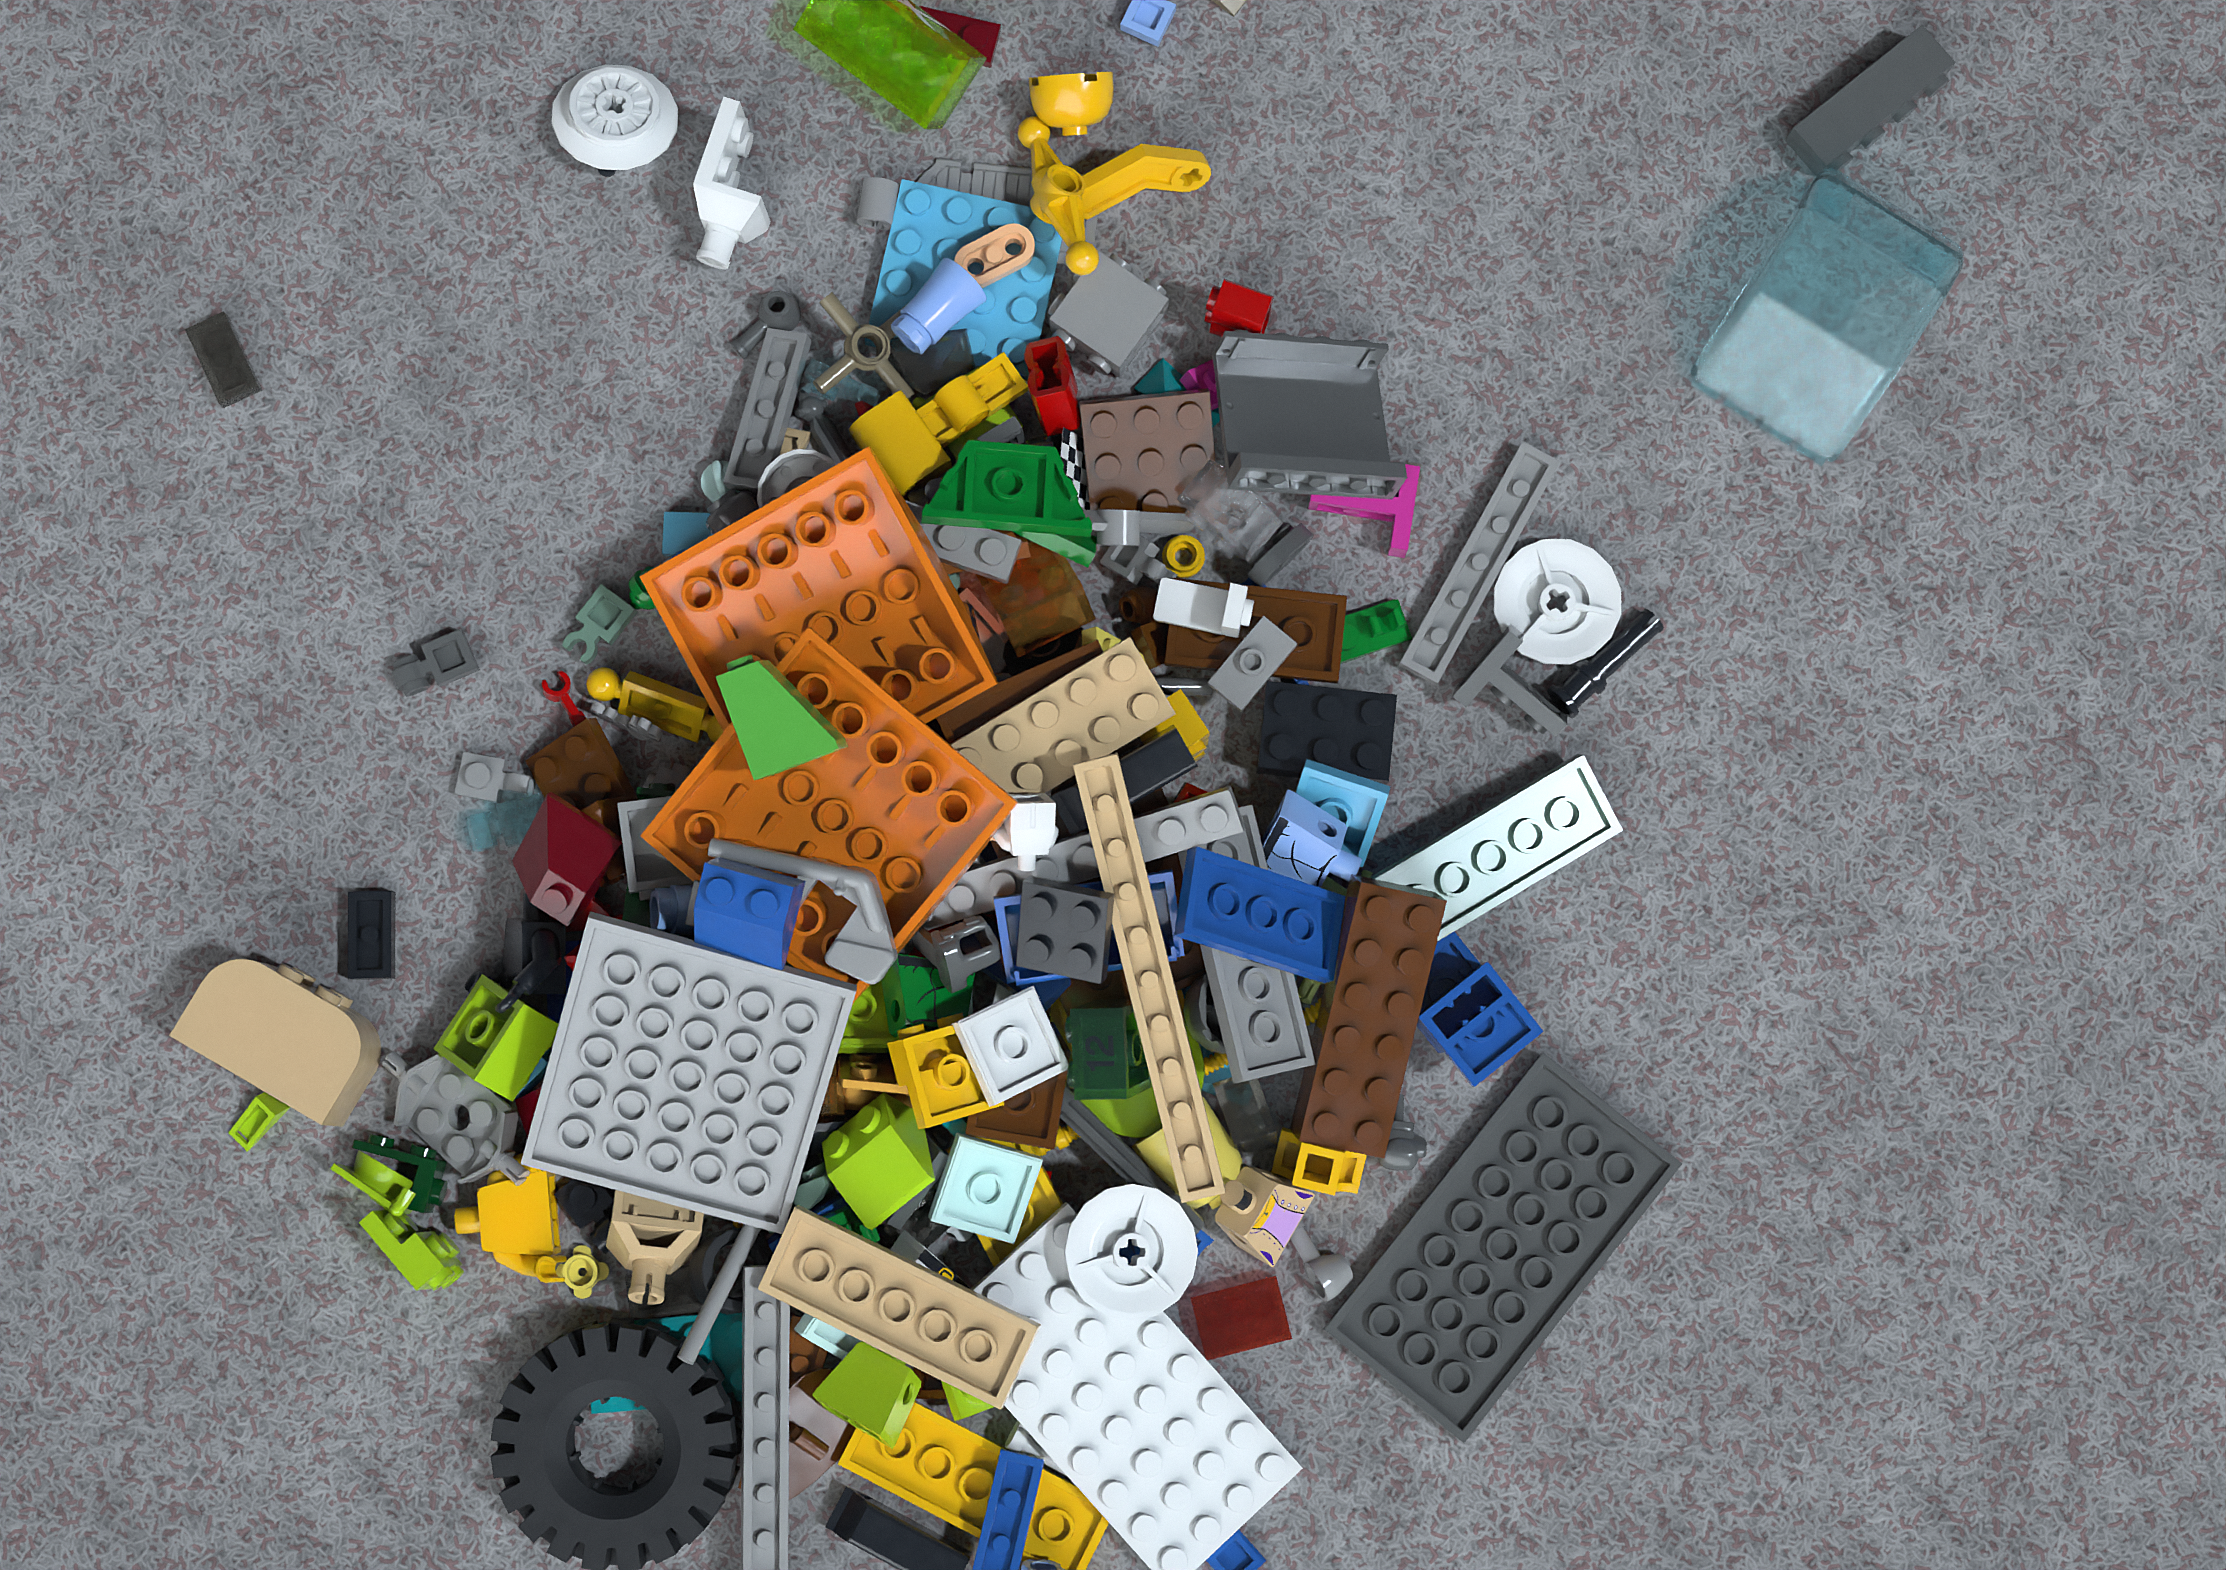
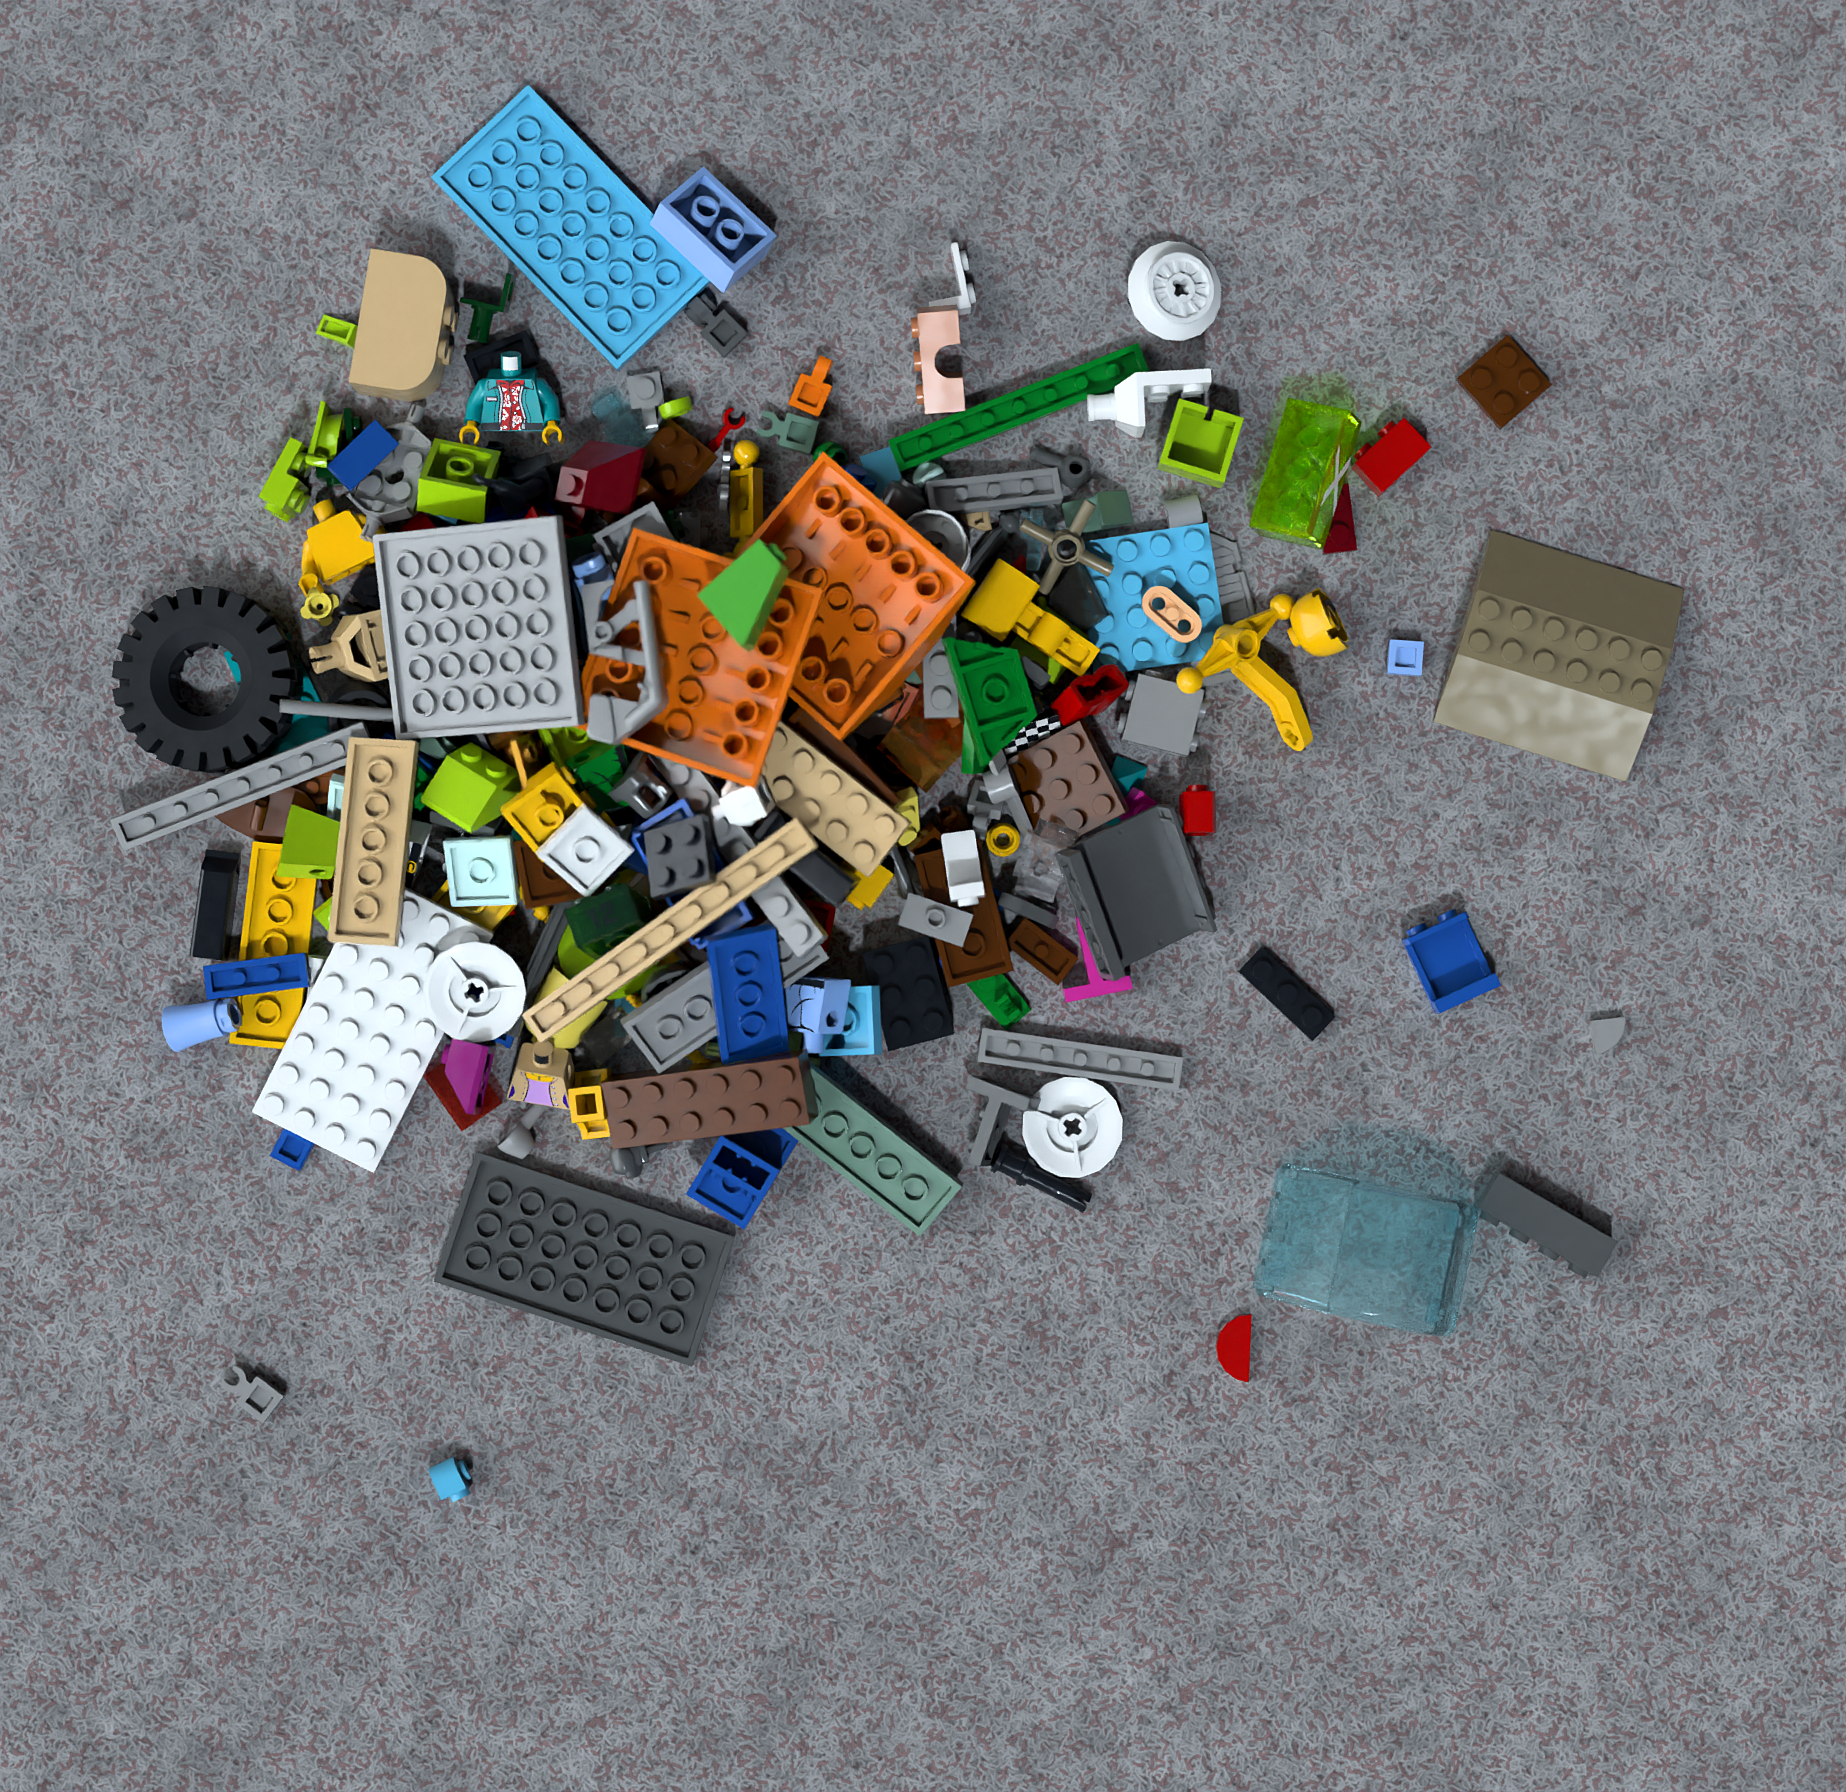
camera: 65 degrees right, 5 degrees up
(223, 359) = (881, 77): clear smoke plate -> none
(248, 790) = (570, 227): none -> medium azure plate
(305, 933) = (484, 312): none -> dark green bracket
(319, 619) = (713, 229): none -> light blue brick
(418, 1145) = (362, 455): none -> blue tile
(428, 938) = (512, 402): none -> torso
(515, 747) = (676, 408): none -> lime tile
(529, 382) = (966, 291): none -> white bracket
(548, 404) = (935, 329): none -> arch
(561, 579) = (811, 392): none -> orange plate
(678, 350) = (1015, 408): none -> green plate
(747, 911) = (603, 626): blue slope -> none
(811, 155) = (1200, 447): none -> lime piece
(848, 285) = (1110, 512): none -> sand green slope
(938, 306) = (1114, 587): light blue plant -> none
(1222, 1299) = (468, 1071): none -> magenta slope
(1334, 559) = (1041, 951): none -> reddish brown plate
(1490, 297) = (1286, 994): none -> black plate
(1522, 98) = (1449, 961): none -> blue panel
(1715, 1514) = (451, 1479): none -> medium azure plate
(1885, 511) = (1234, 1347): none -> red tile

